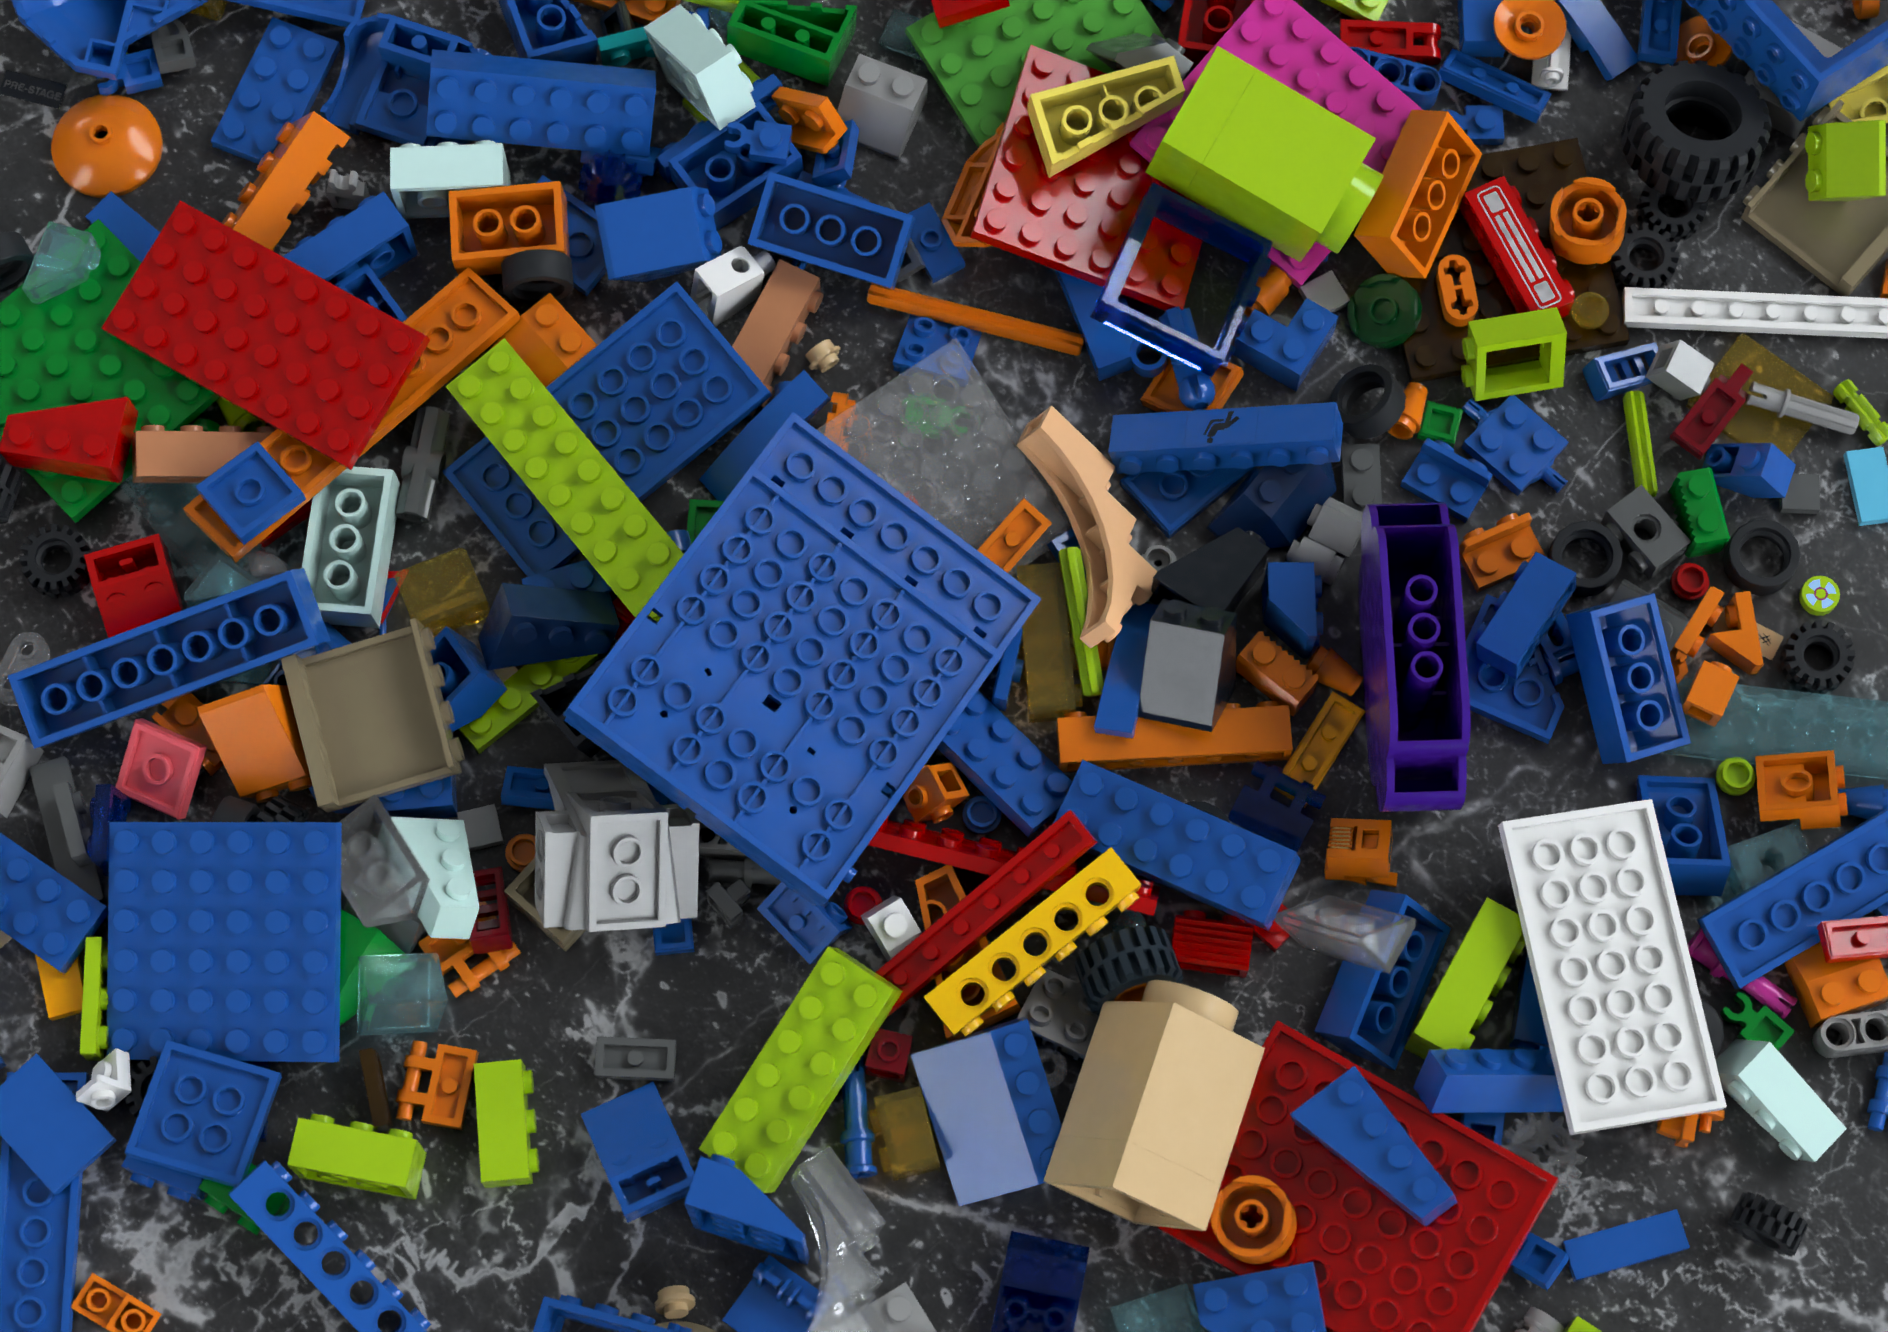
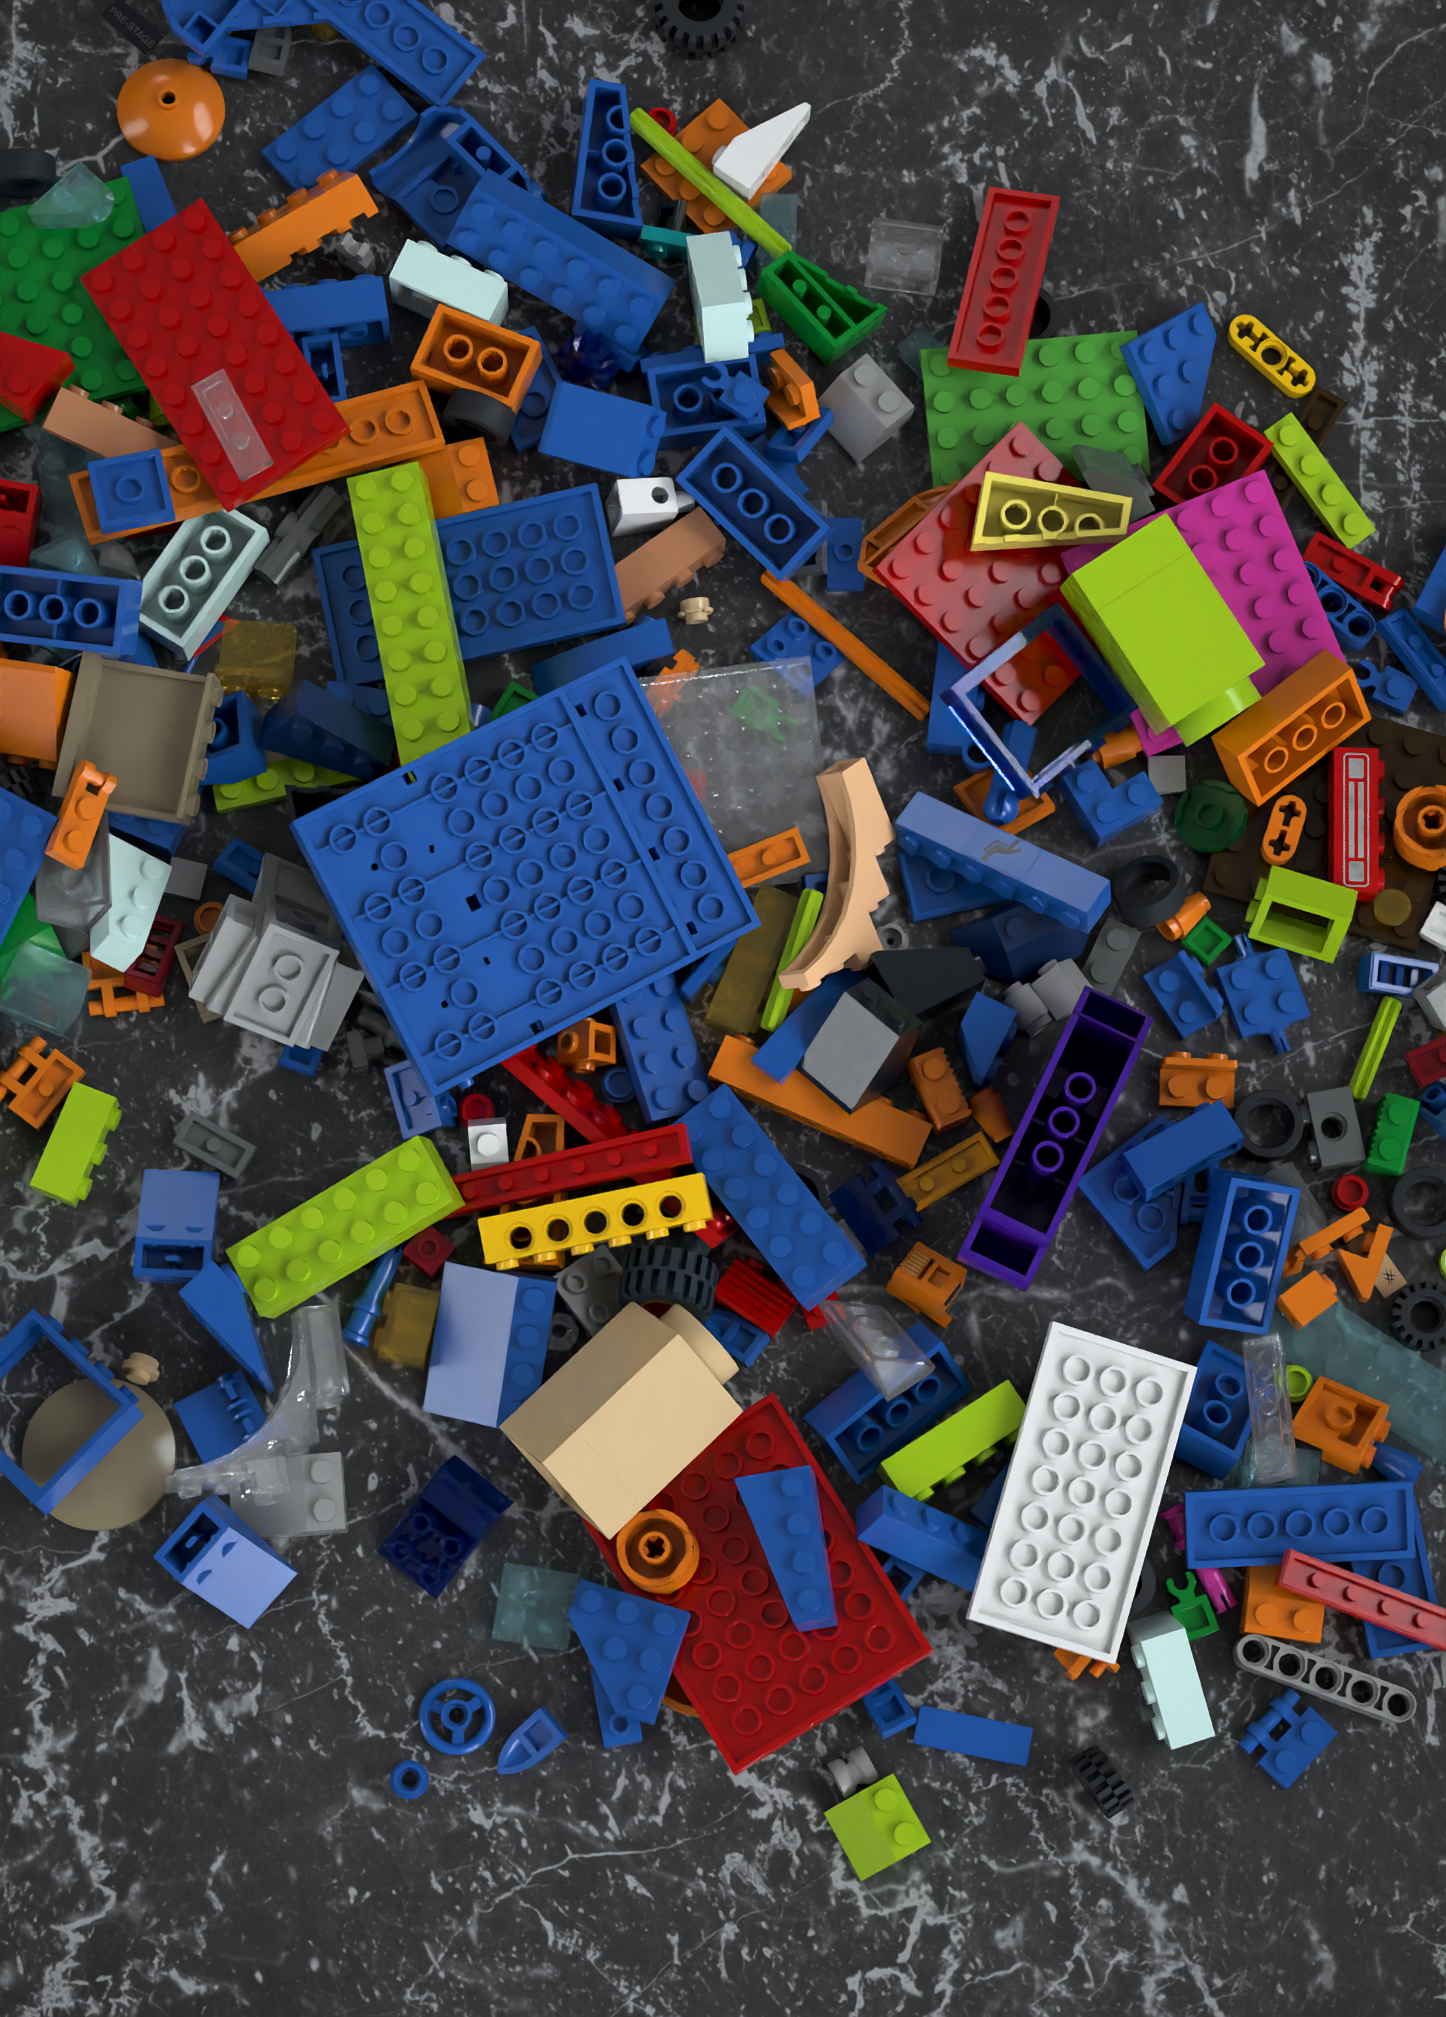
camera: 20 degrees right, 5 degrees up
(316, 385) = (232, 425): none -> clear tile
(355, 810) = (80, 815): none -> orange plate
(1220, 983) = (737, 1336): none -> blue plate
(1732, 806) = (1270, 1409): none -> clear plate

